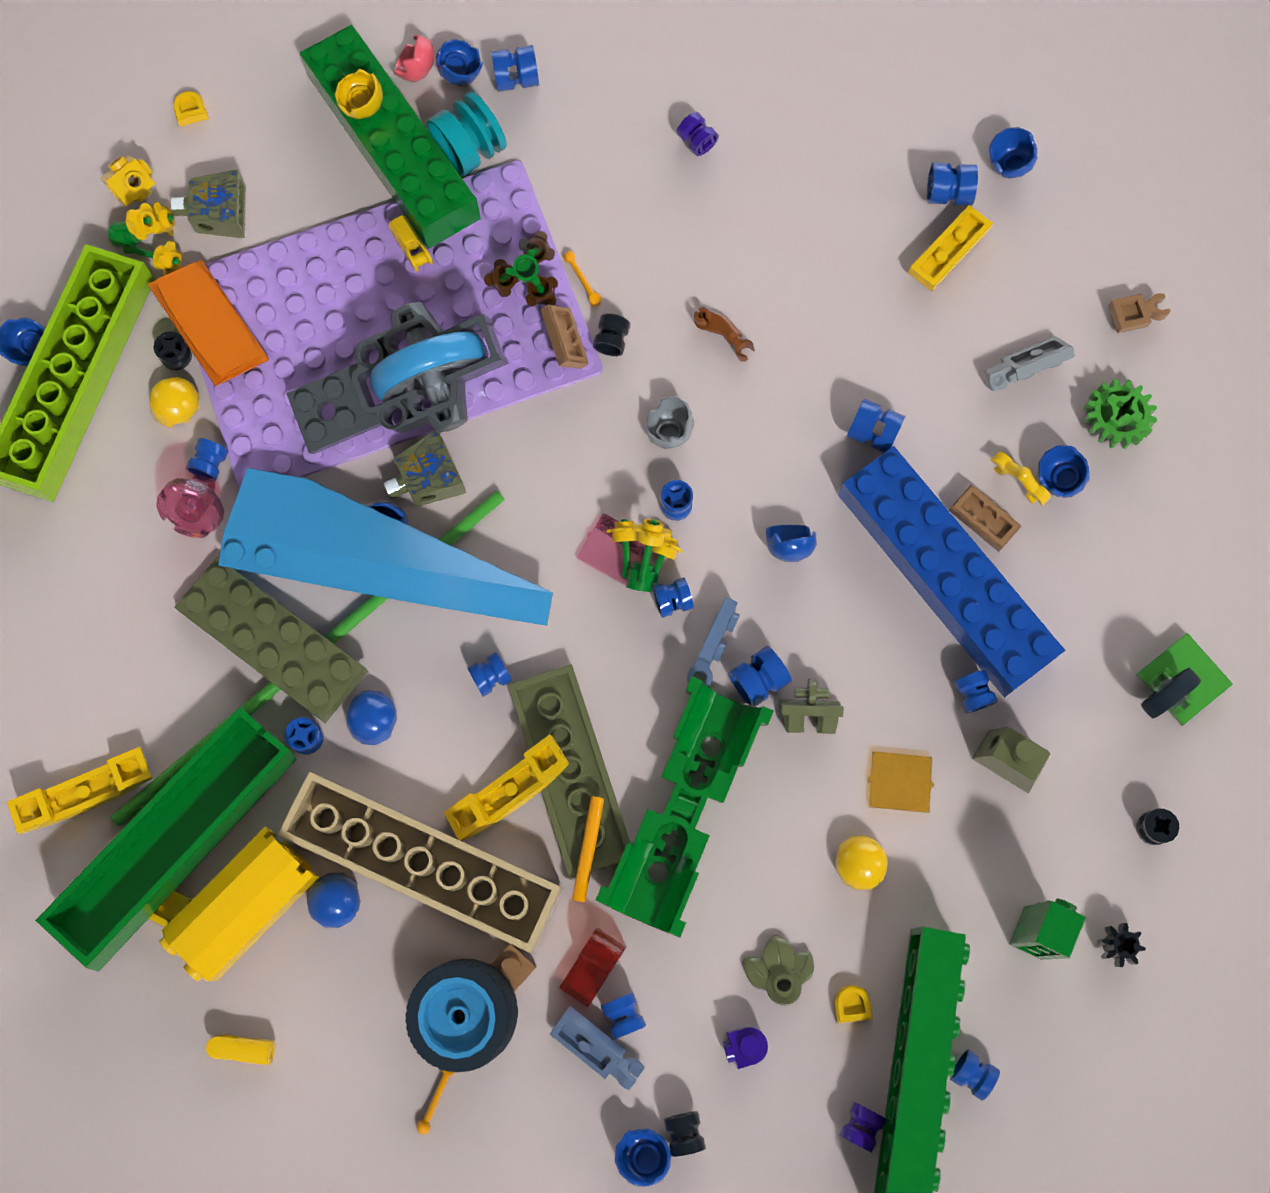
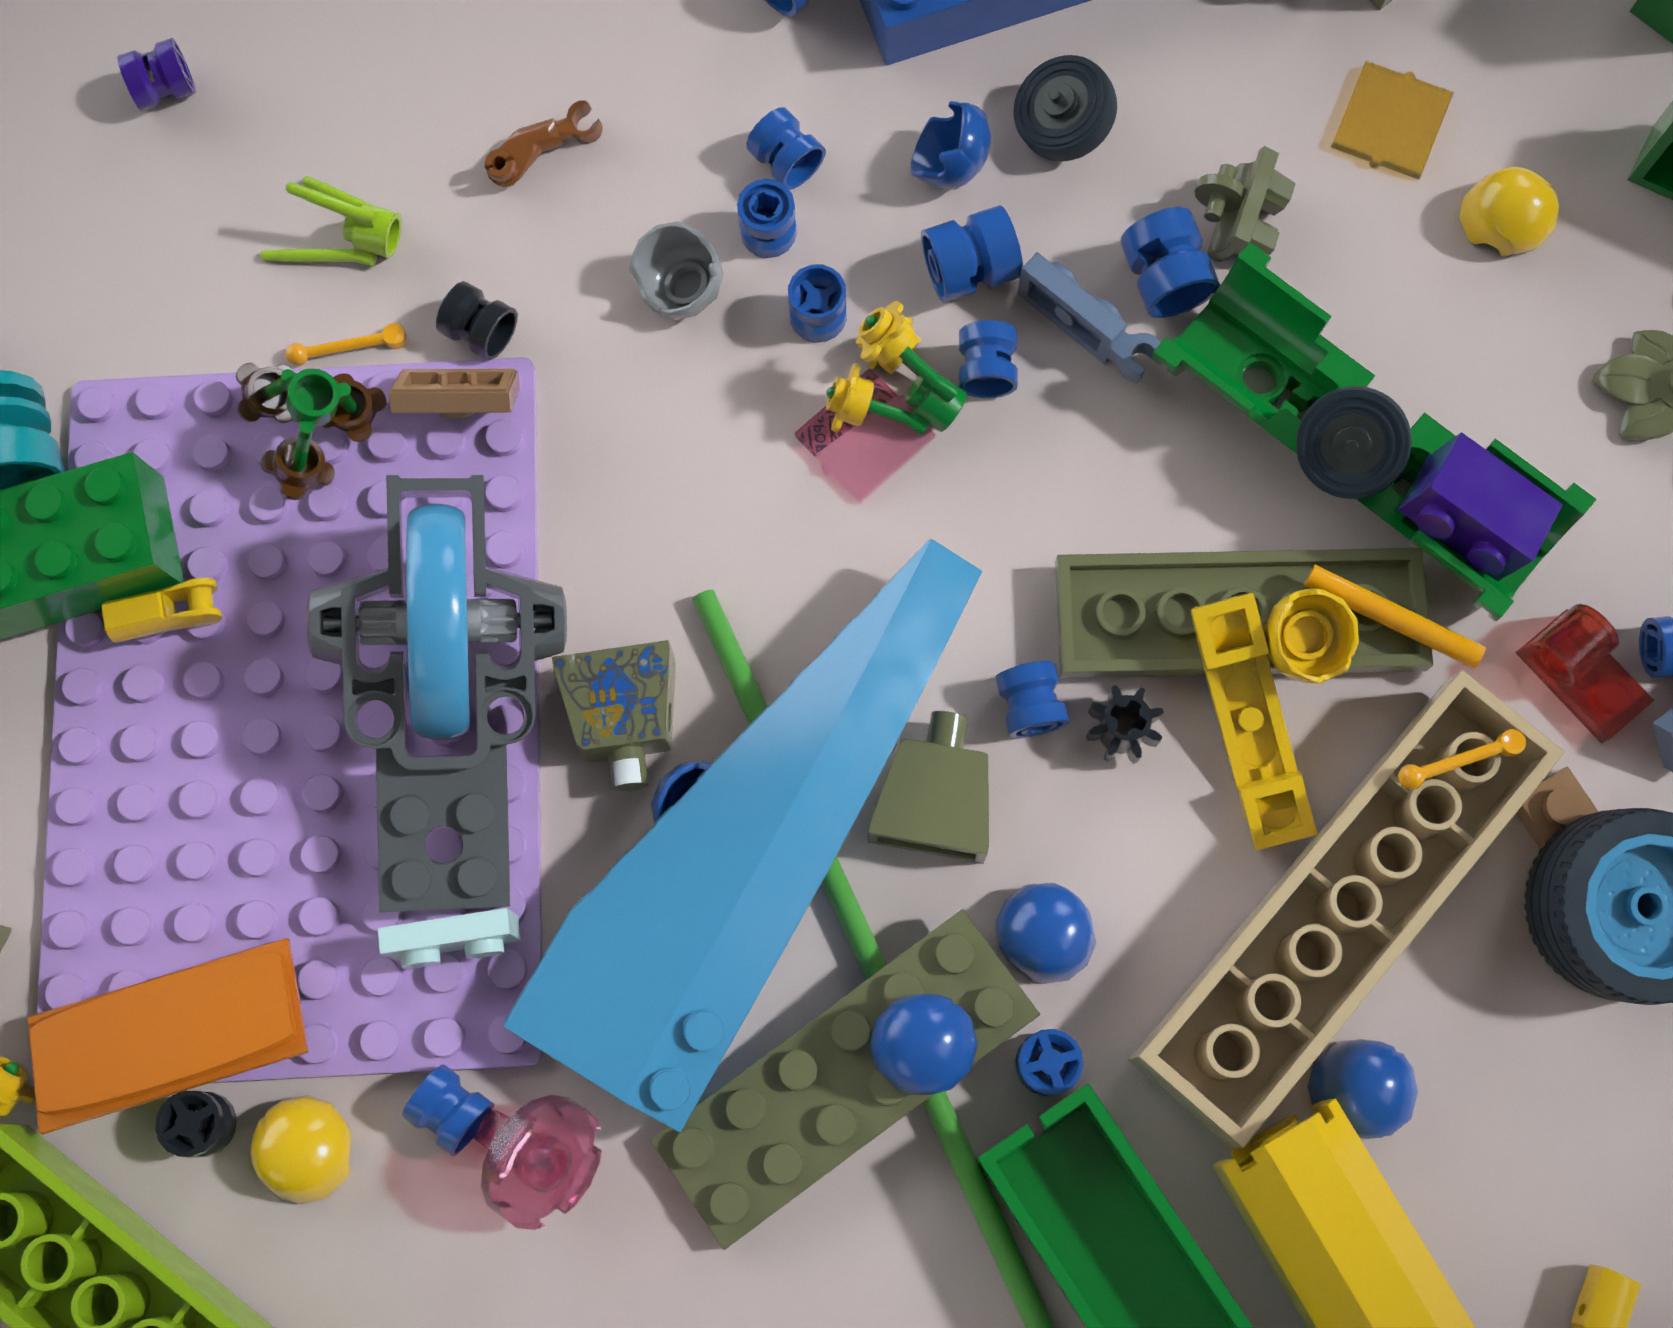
camera: 70 degrees left, 0 degrees up
(279, 419) = (423, 941): none -> light aqua plate
(288, 666) = (924, 1044): none -> blue hair
(424, 640) = (936, 795): none -> olive torso
(495, 732) = (1140, 727): none -> black gear
(525, 920) = (1508, 744): none -> light orange hinge
(557, 803) = (1311, 636): none -> yellow hair
(646, 267) = (368, 227): none -> lime plant
(653, 873) = (1480, 507): none -> dark purple brick
(671, 795) = (1353, 442): none -> black wheel
(717, 466) = (763, 231): none -> blue wheel
(730, 570) = (972, 253): none -> blue wheel
(762, 456) = (786, 149): none -> blue wheel
(836, 595) = (1065, 108): none -> black wheel

